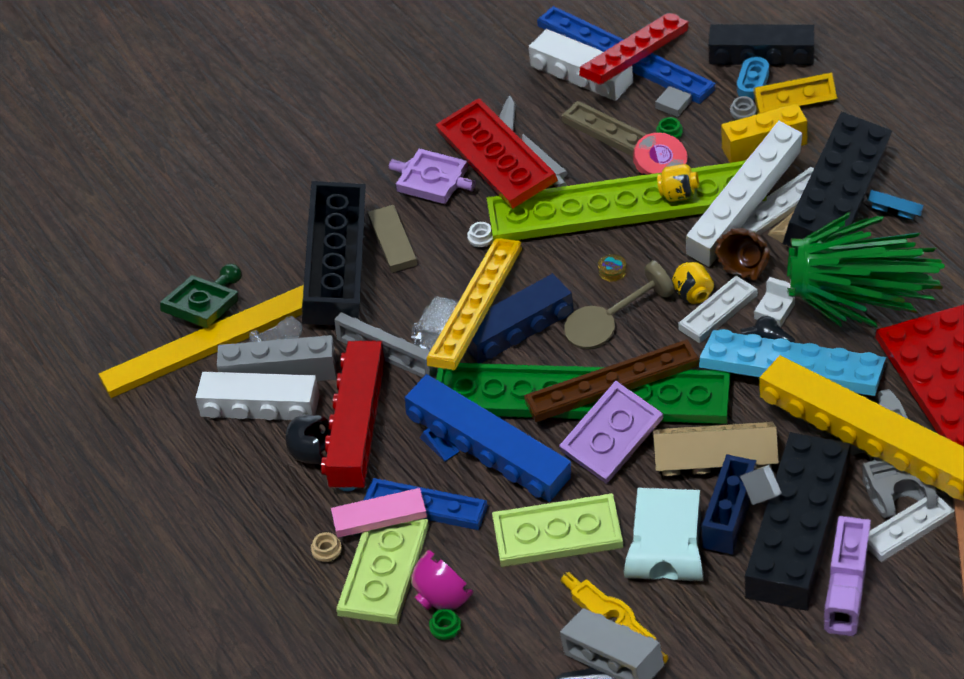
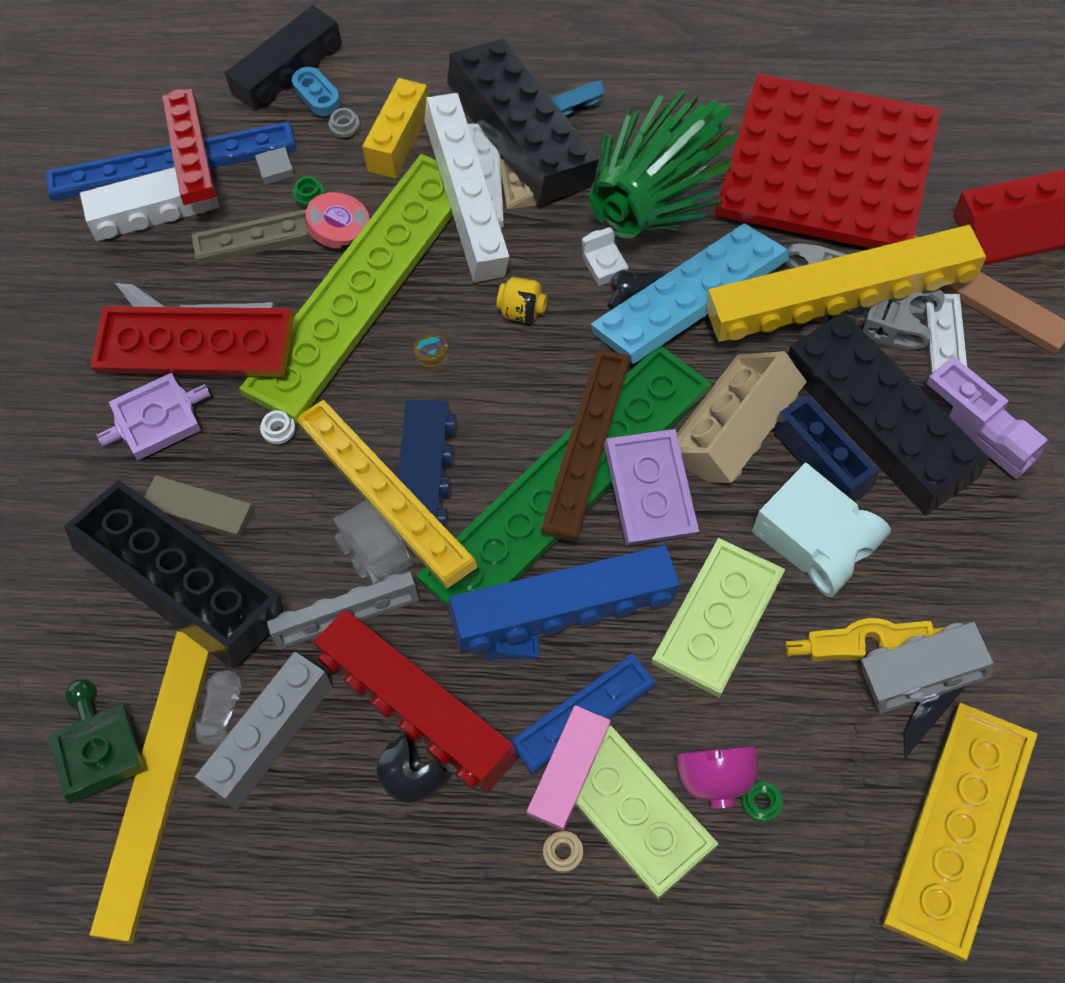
camera: 55 degrees left, 15 degrees up
(257, 395) = (292, 783): white brick -> none
(594, 325) = (488, 414): dark tan piece -> none
(677, 182) = (398, 225): yellow head -> none
(717, 309) = (564, 305): white tile -> none
(743, 253) = (532, 237): reddish brown hair -> none
(761, 484) = (848, 409): light grey tile -> none
(798, 91) = (370, 75): yellow plate -> none

